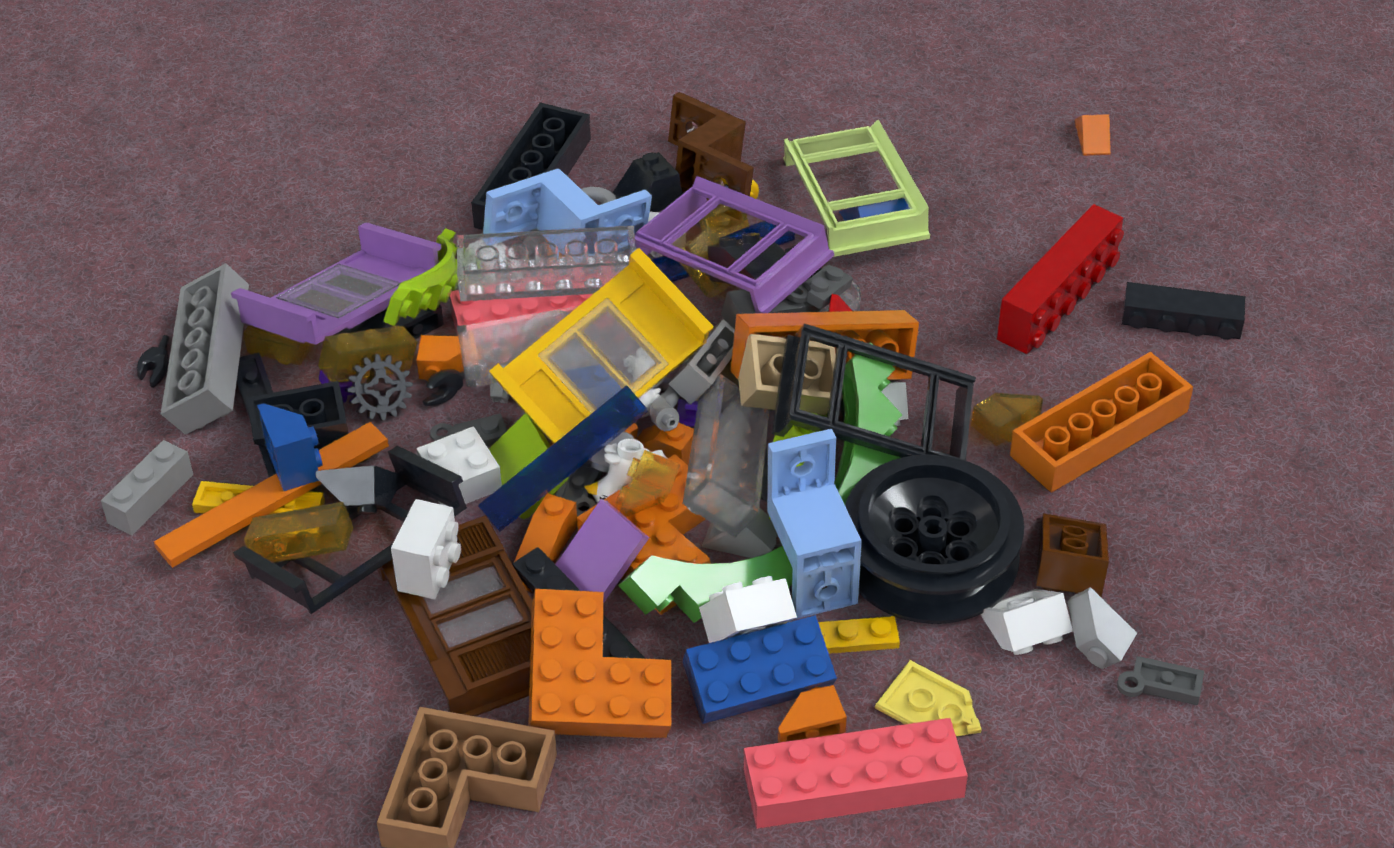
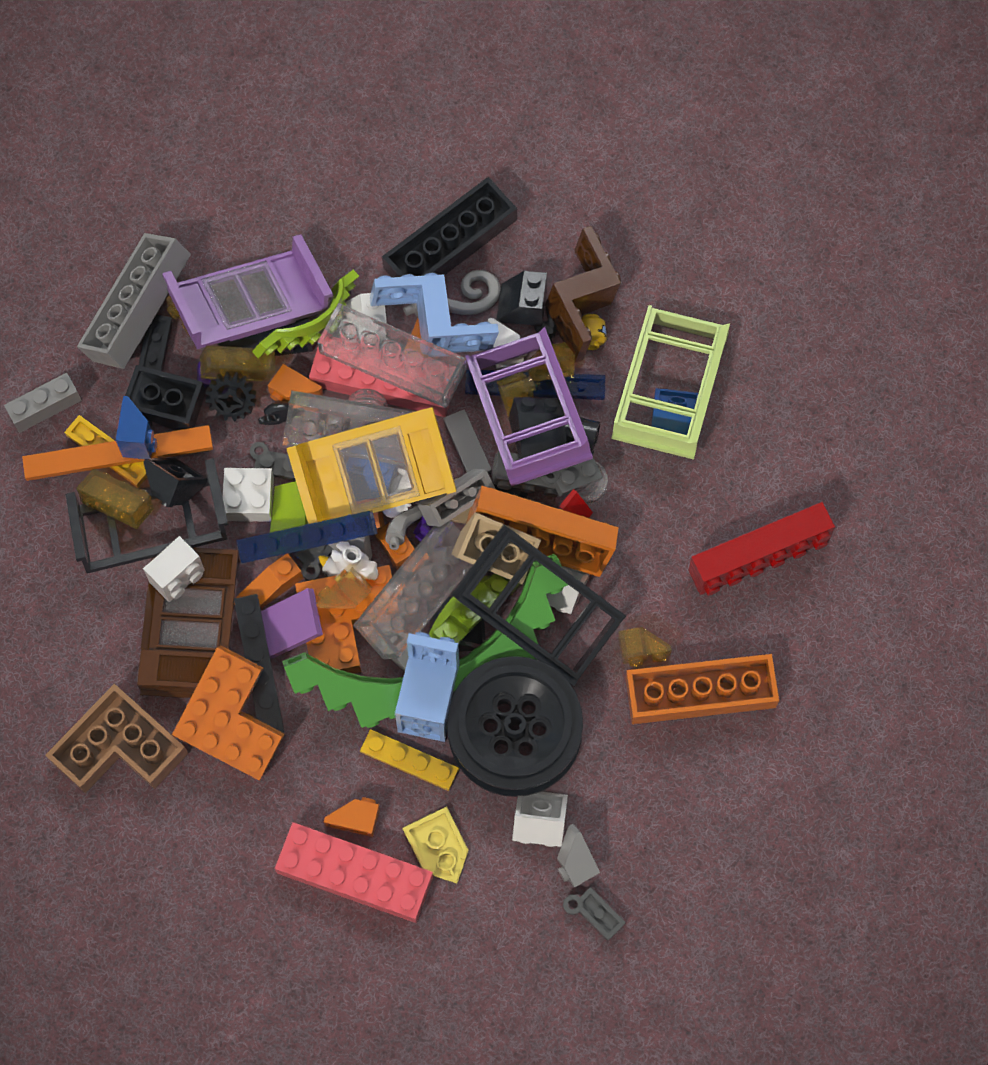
camera: 30 degrees right, 25 degrees up
(154, 359) = (104, 284): black hand -> none
(747, 608) = (348, 728): white brick -> none
(758, 669) = (340, 766): blue brick -> none
(1072, 555) = (607, 783): reddish brown slope -> none
(1094, 134) = (897, 412): orange slope -> none
(1183, 310) = (835, 621): black brick -> none

